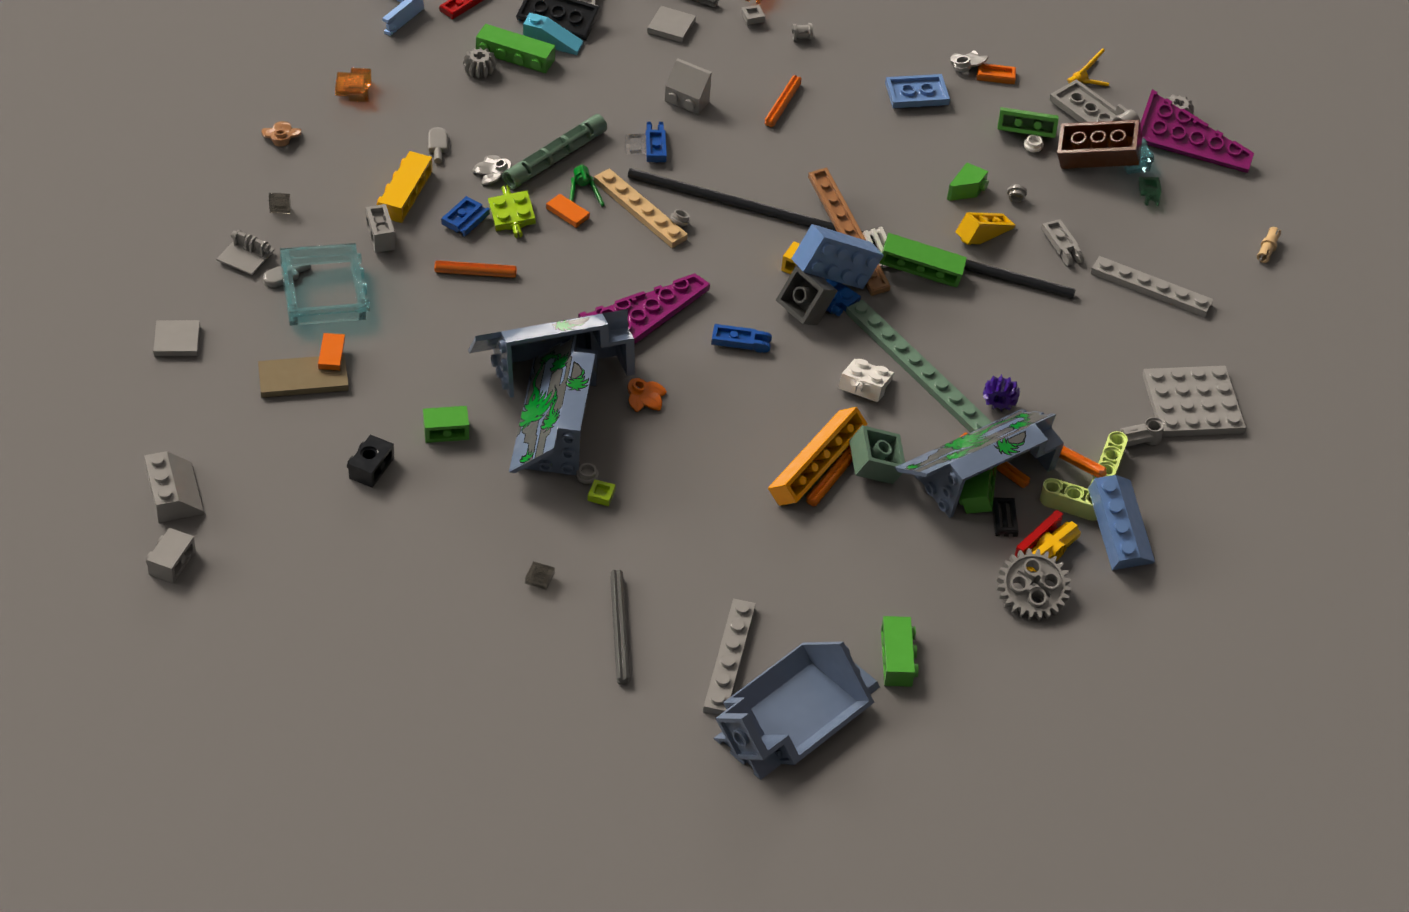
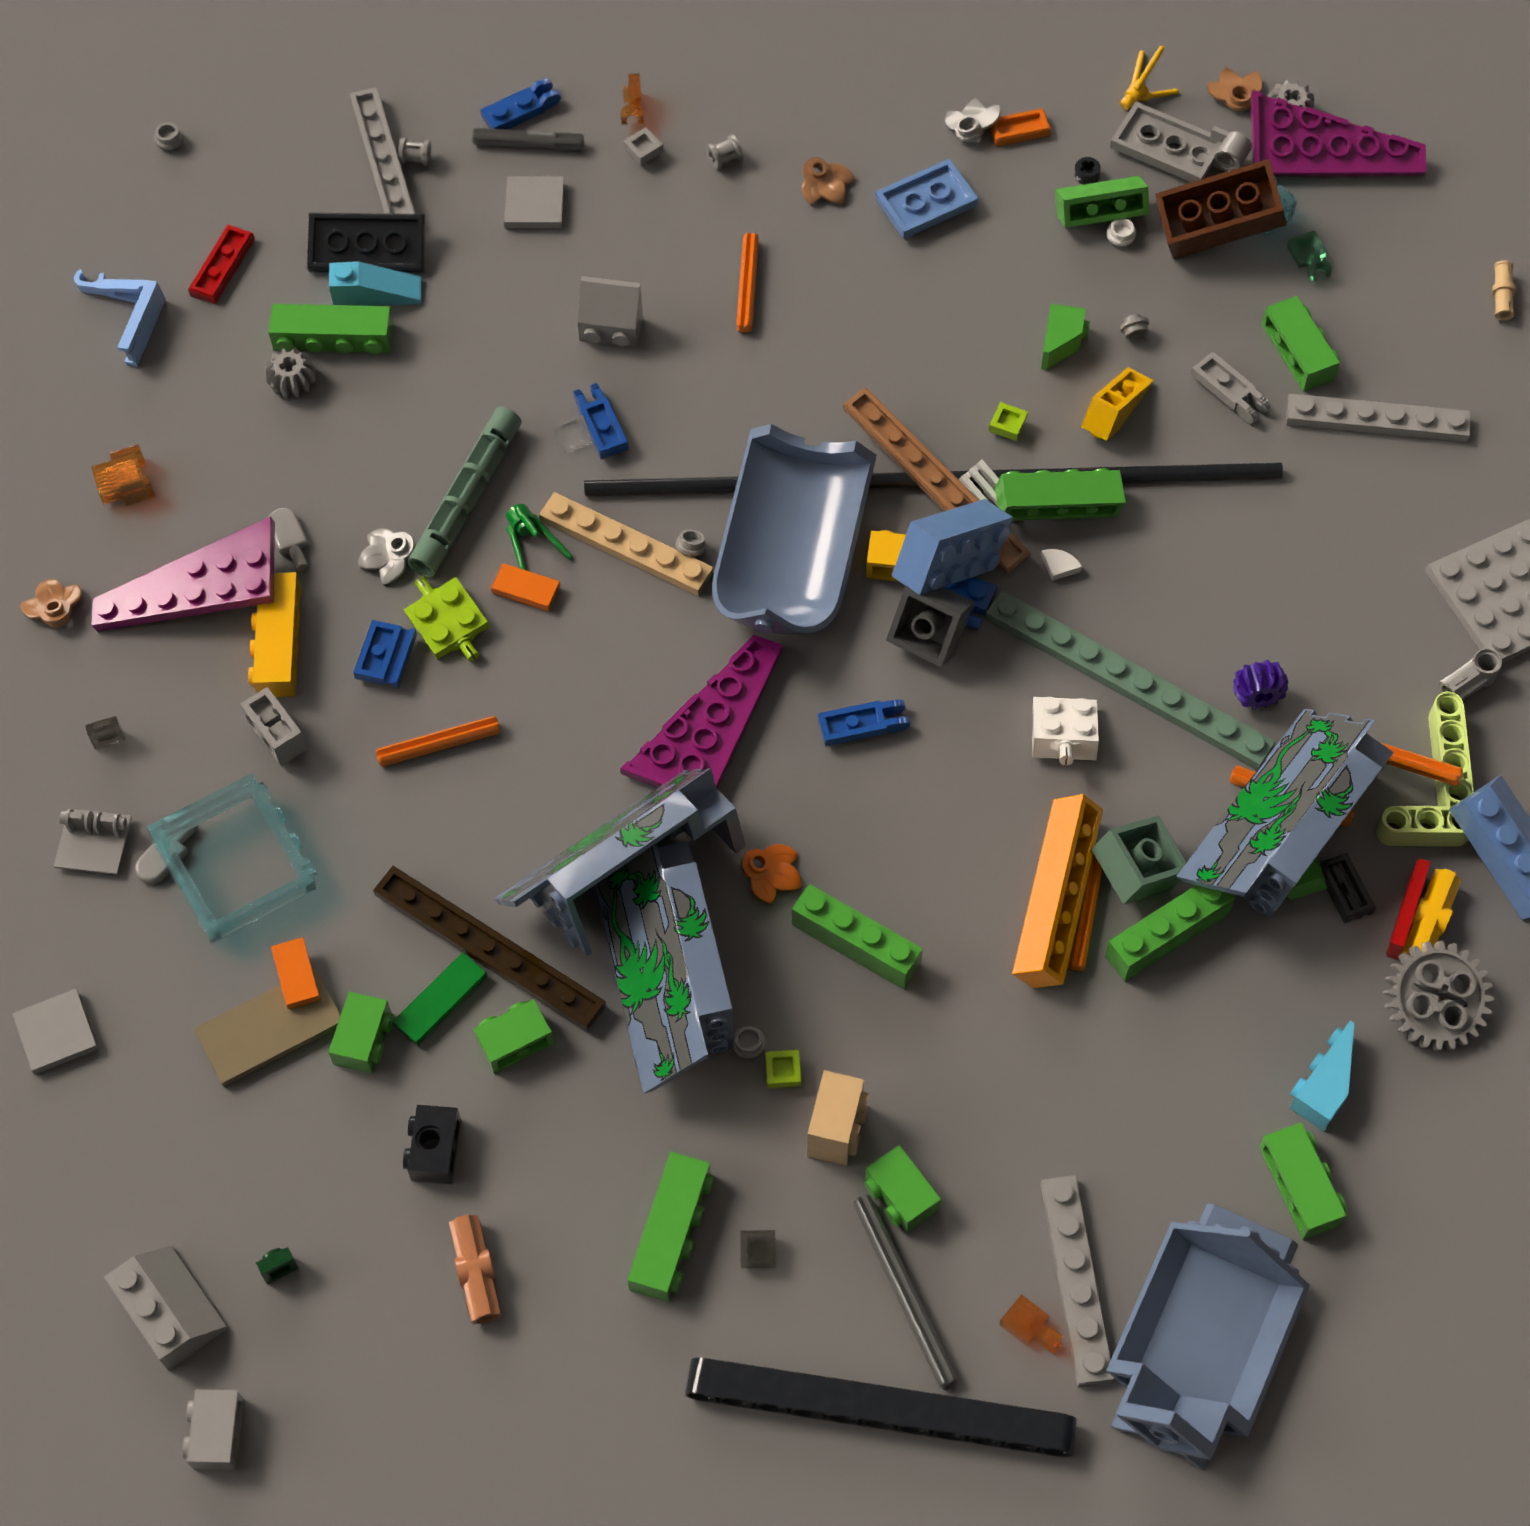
camera: 15 degrees left, 15 degrees up
(248, 489) = (276, 1264): none -> dark green plate
(355, 393) = (361, 1032): none -> bright green brick
(364, 529) = (475, 1269): none -> nougat piece
(381, 146) = (212, 579): none -> wing
(411, 394) = (439, 999): none -> green tile
(454, 378) = (490, 948): none -> dark brown plate
(492, 546) = (669, 1227): none -> bright green brick
(576, 677) = (881, 1407): none -> black beam
(619, 521) = (835, 1118): none -> tan brick
(643, 574) = (901, 1189): none -> bright green brick
(680, 440) = (856, 936): none -> bright green brick
(689, 668) = (1028, 1322): none -> clear orange plate
(744, 225) = (791, 531): none -> sand blue panel
(858, 66) = (827, 184): none -> medium nougat plate
(879, 497) = (1167, 929): none -> bright green brick
(907, 298) = (1060, 563): none -> white tile
(910, 216) = (1008, 421): none -> lime plate
(938, 608) = (1328, 1085): none -> medium azure slope
(1028, 103) = (1087, 163): none -> black bush
(1120, 232) = (1300, 343): none -> bright green brick
(1143, 92) = (1234, 89): none -> medium nougat plate

